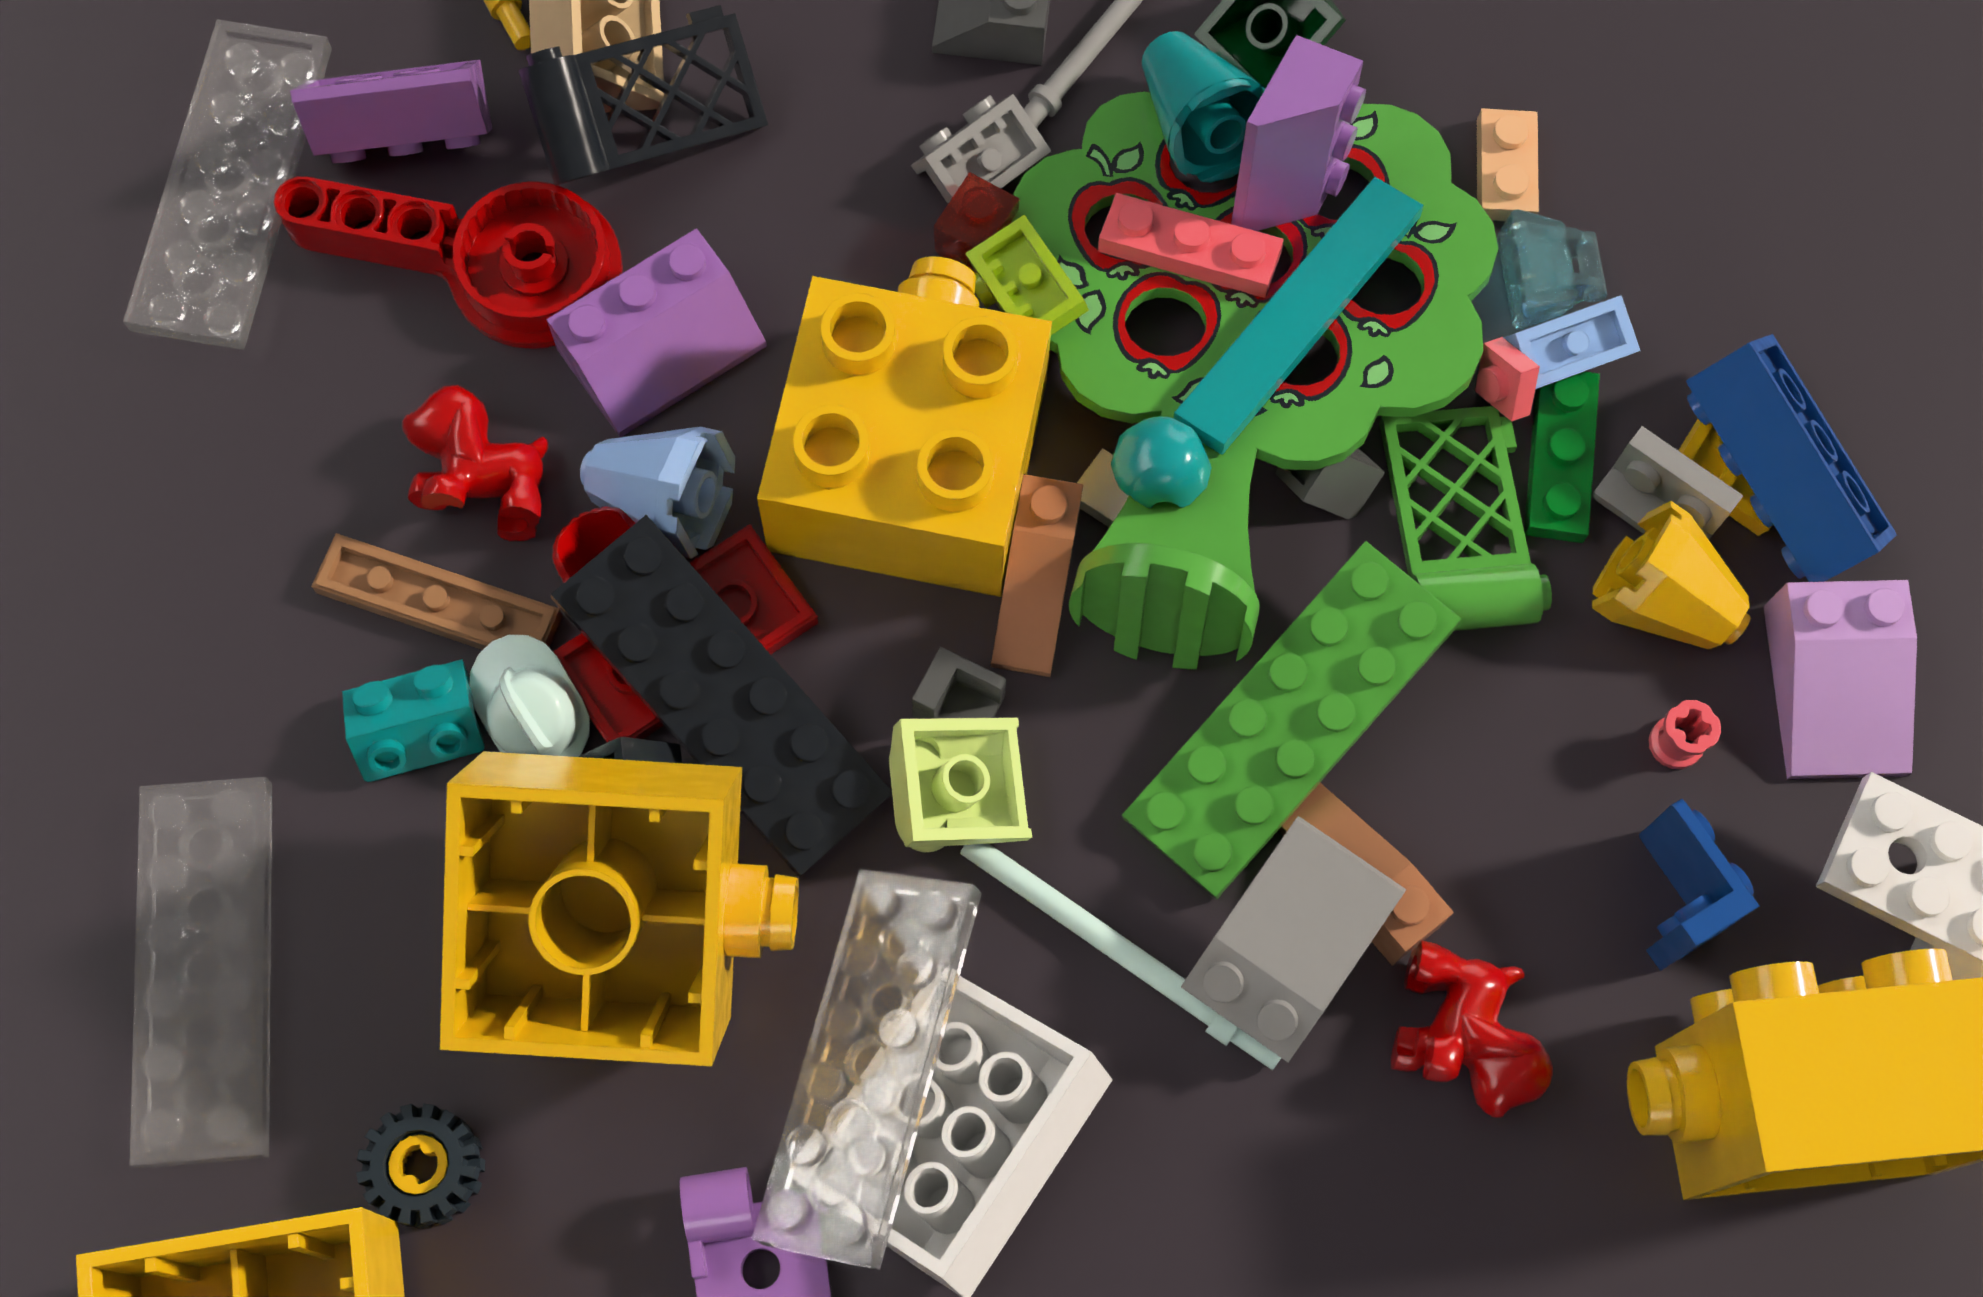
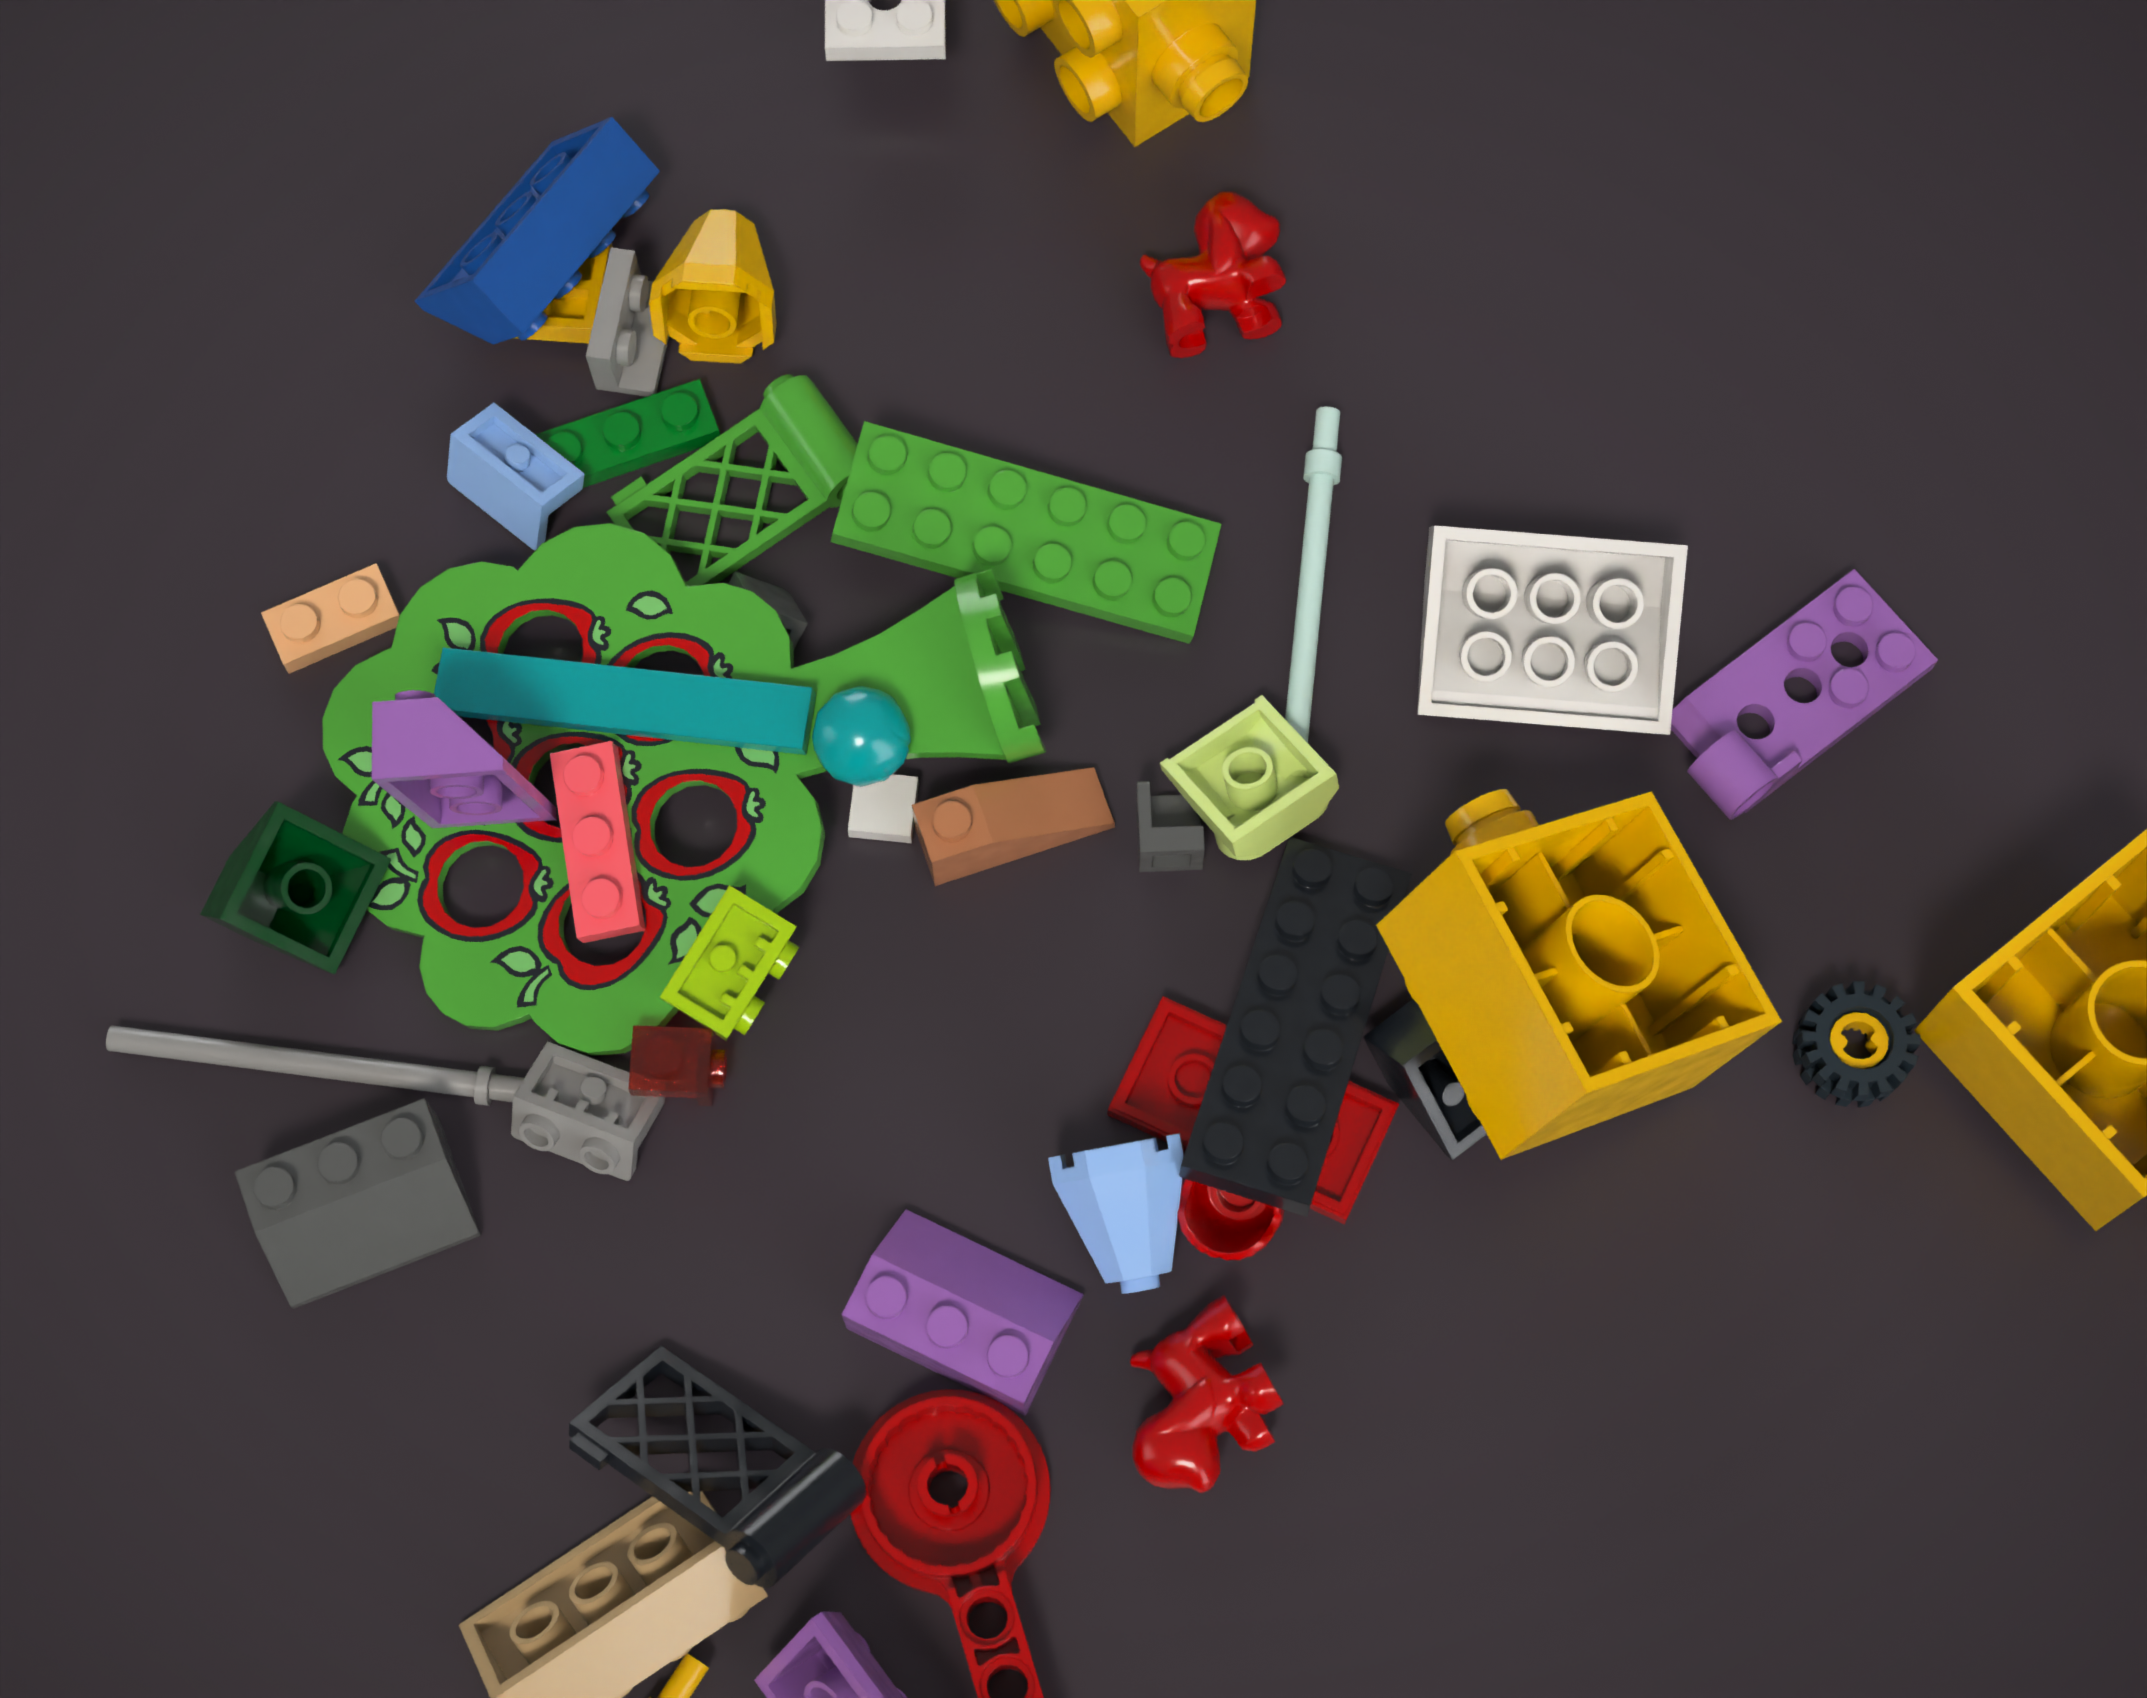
camera: 115 degrees left, 0 degrees up
(202, 973) = (1813, 1353): clear plate -> none
(411, 721) = (1479, 1306): teal bracket -> none
(429, 596) = (1352, 1364): medium nougat tile -> none
(528, 699) = (1401, 1209): light aqua piece -> none
(868, 1069) = (1542, 716): clear plate -> none
(906, 430) = (945, 987): yellow brick -> none
(1199, 105) = (430, 906): teal cone -> none
(1293, 938) = (1236, 429): light grey slope -> none
(1419, 909) = (1132, 407): nougat slope -> none
(1507, 379) = (582, 501): coral plate -> none
(1539, 267) = (441, 533): clear light blue piece -> none
(1699, 726) = (862, 212): coral bush -> none
(1710, 886) = (1004, 126): blue bracket -> none
(1844, 677) = (722, 125): lavender slope -> none

